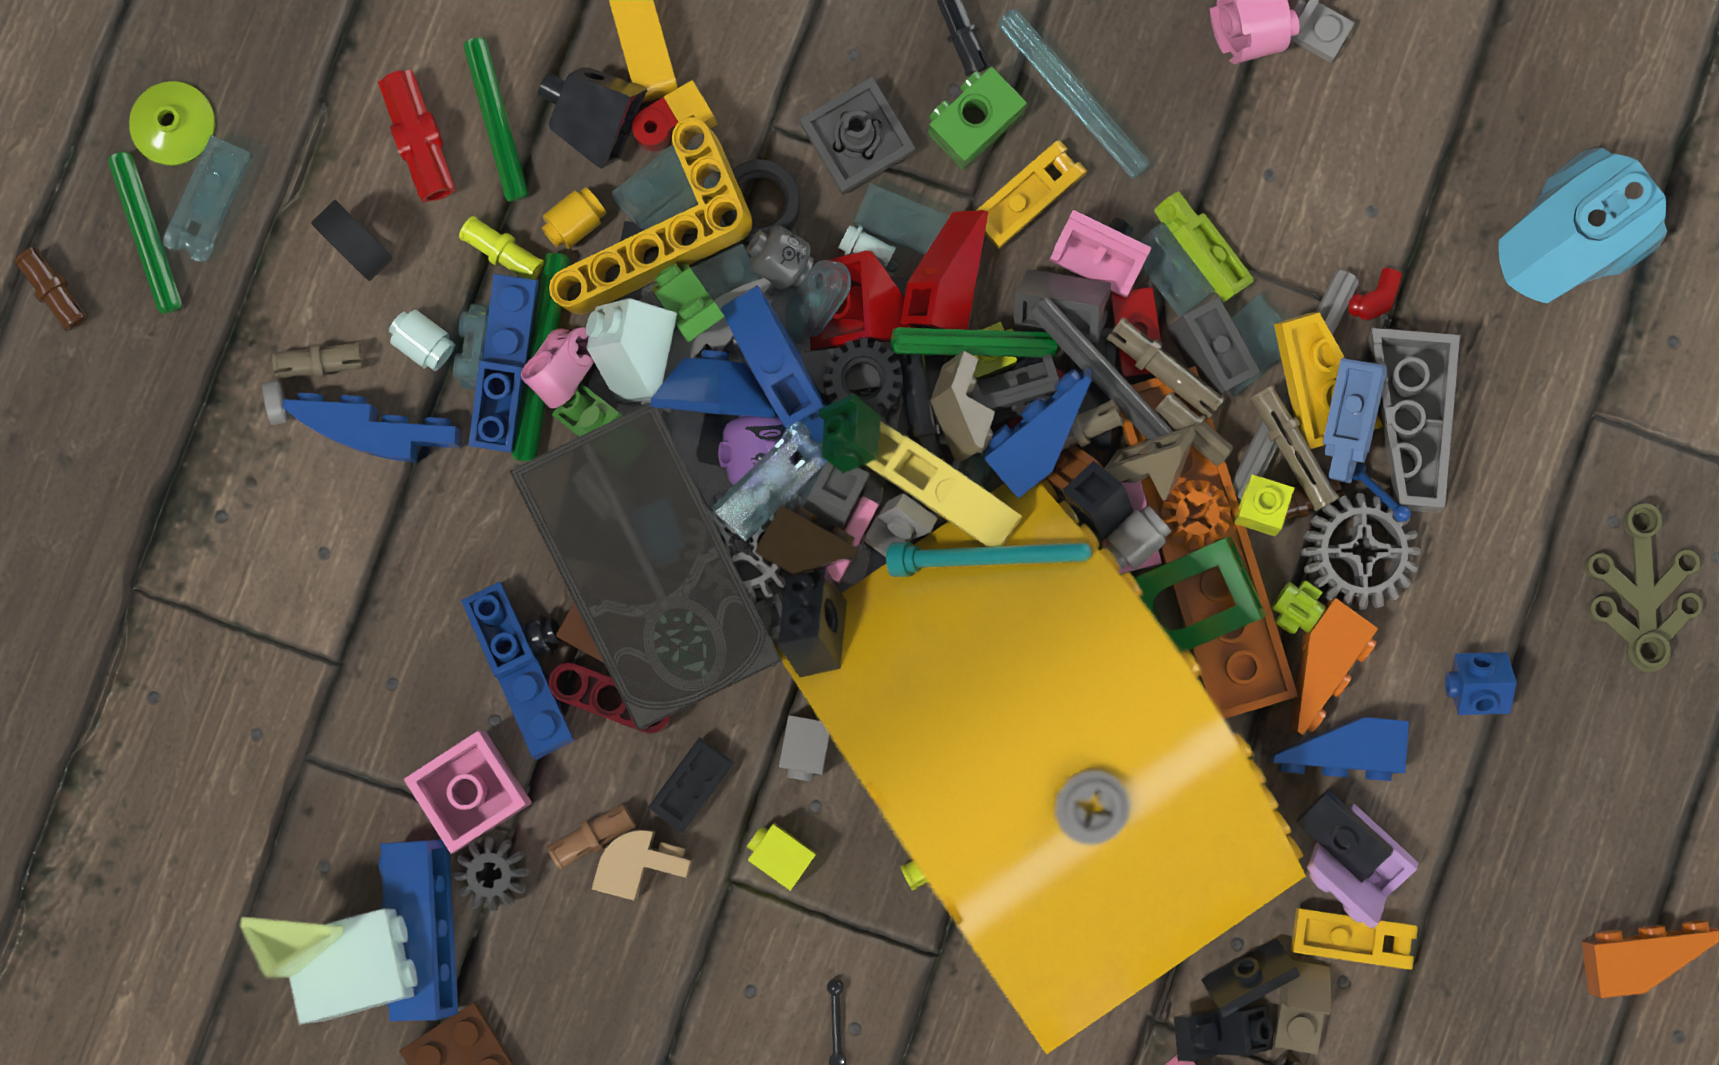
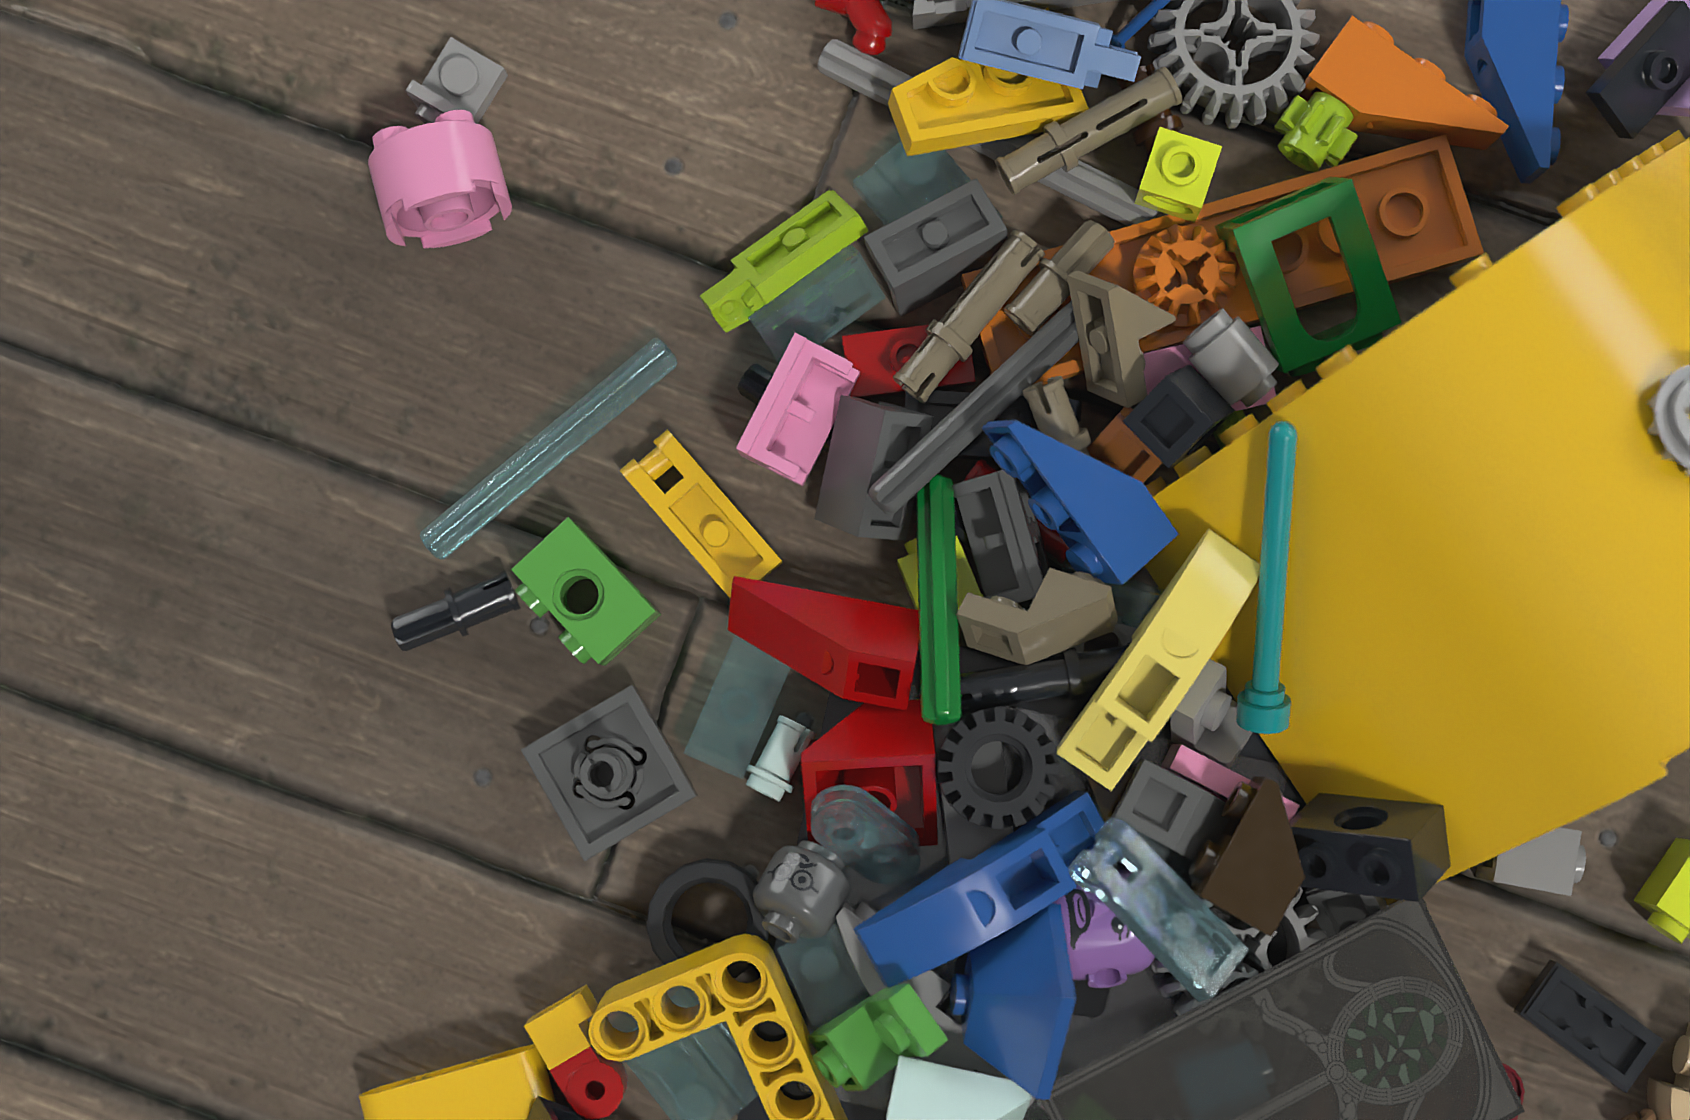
camera: 85 degrees left, 0 degrees up
(849, 433) = (1092, 789): dark green brick -> none

